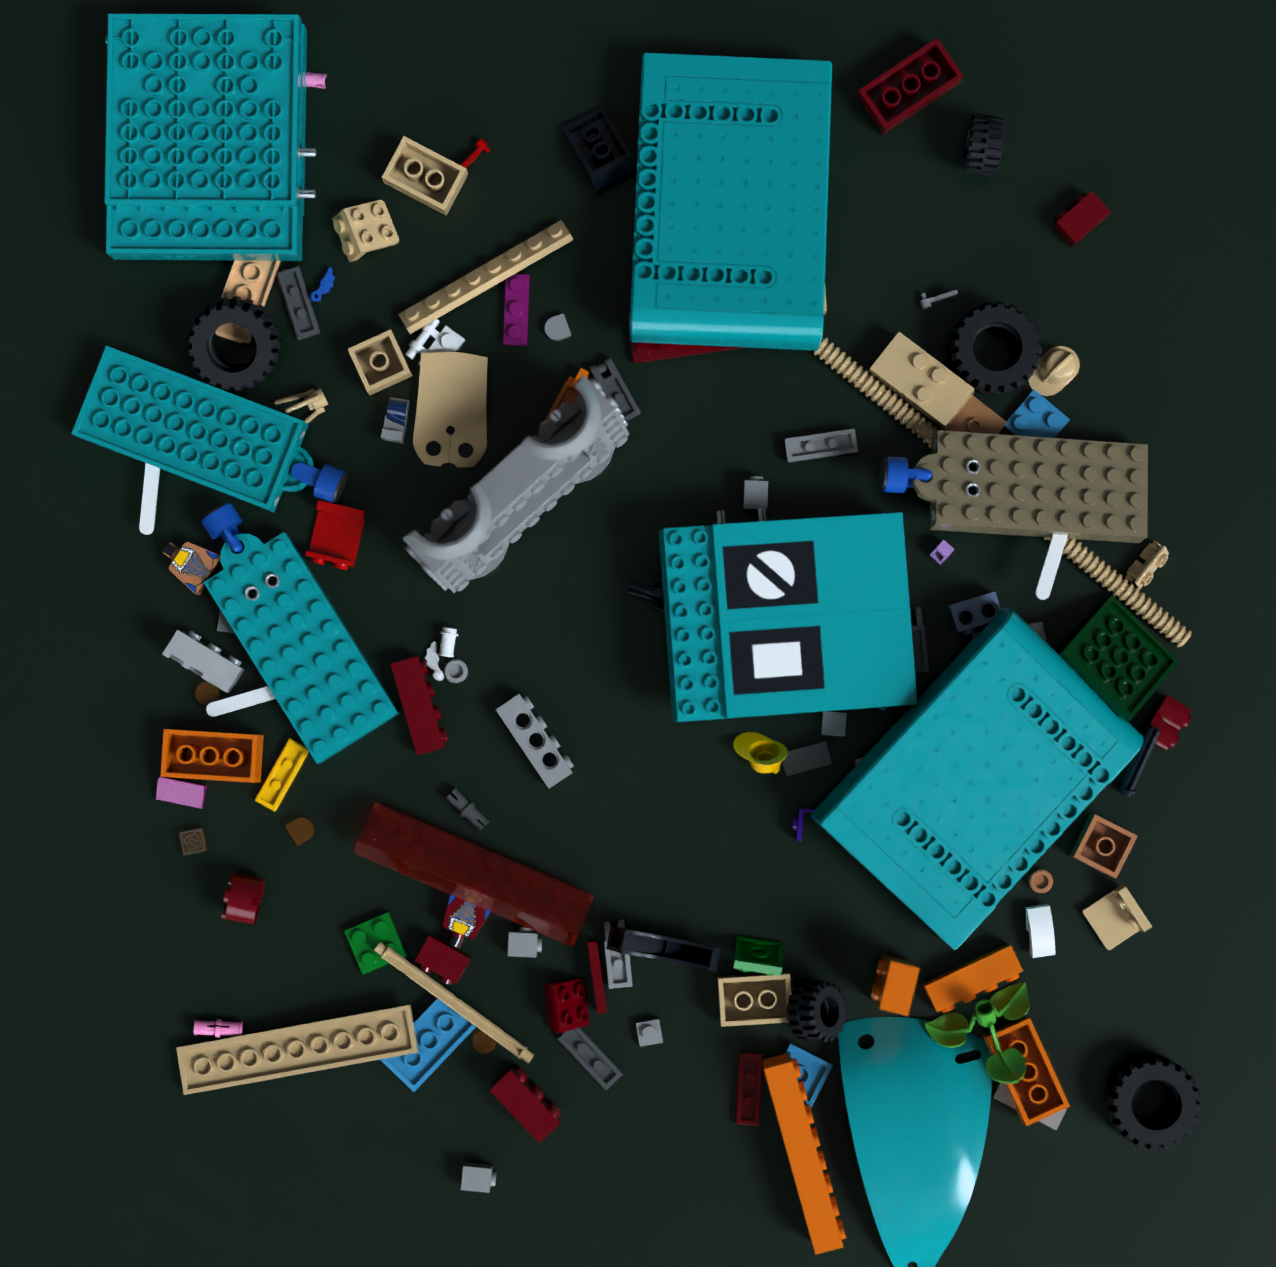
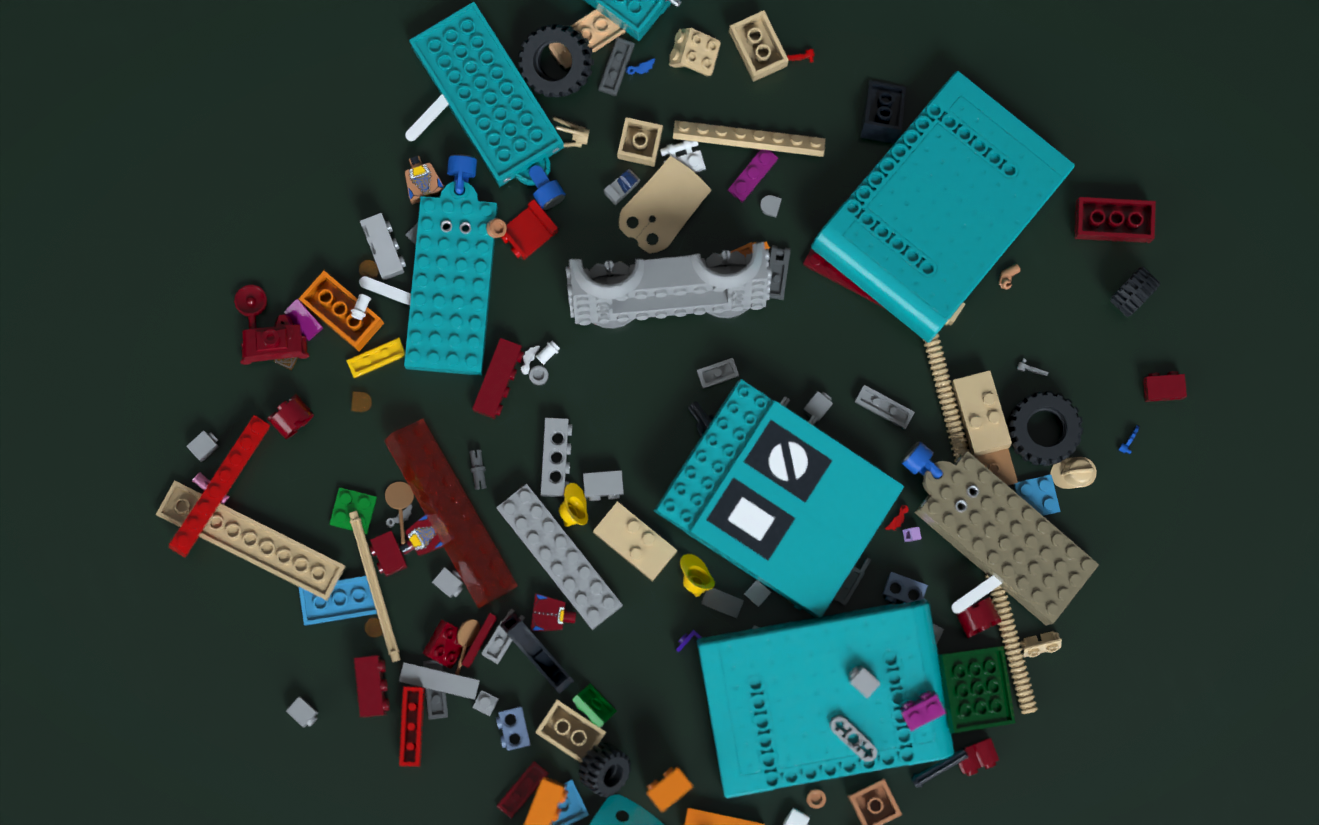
camera: 35 degrees right, 5 degrees down
(165, 841) = (269, 342): none -> dark red piece
(178, 991) = (203, 445): none -> light grey brick
(225, 1021) = (219, 486): none -> red brick
(229, 739) = (360, 307): none -> white pin
(303, 557) = (496, 228): none -> nougat tile
(411, 895) = (399, 496): none -> medium nougat piece
(428, 914) = (406, 513): none -> light grey piece
(581, 983) = (466, 637): none -> medium nougat piece
(588, 1046) = (439, 681): none -> light grey tile
(590, 775) = (574, 507): none -> yellow piece
(595, 1111) = (412, 726): none -> red brick
(602, 732) = (603, 484): none -> light grey brick
(613, 835) = (559, 557): none -> light grey brick
(631, 536) = (717, 373): none -> light grey plate
(647, 899) = (550, 614): none -> dark red torso
(676, 764) = (635, 541): none -> tan brick
(700, 1032) = (519, 728): none -> sand blue brick
(843, 224) = (1006, 276): none -> nougat arm
(917, 547) = (898, 520): none -> red piece
(1007, 736) = (863, 681): none -> light grey brick
(1055, 794) = (846, 724): none -> light grey beam
(1070, 584) = (979, 617): none -> dark red brick
(1085, 308) = (1124, 447): none -> blue piece
(1085, 721) = (922, 711): none -> magenta bracket

